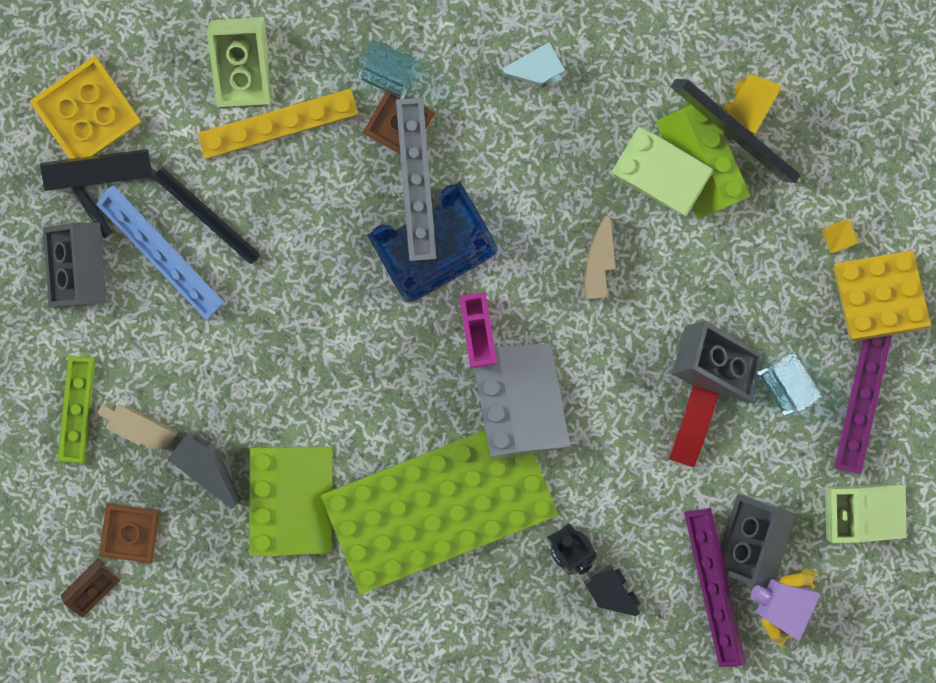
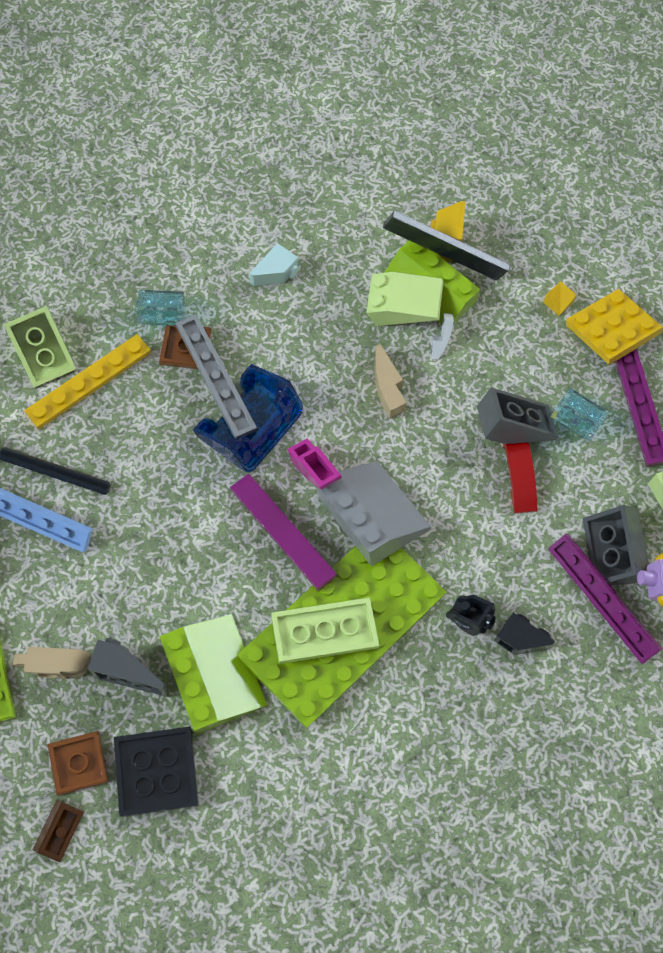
camera: 25 degrees left, 20 degrees down
(200, 573) = (155, 771): none -> black plate
(415, 510) = (324, 630): none -> yellowish green plate
(417, 384) = (283, 532): none -> magenta tile
(682, 233) = (441, 342): none -> white slope

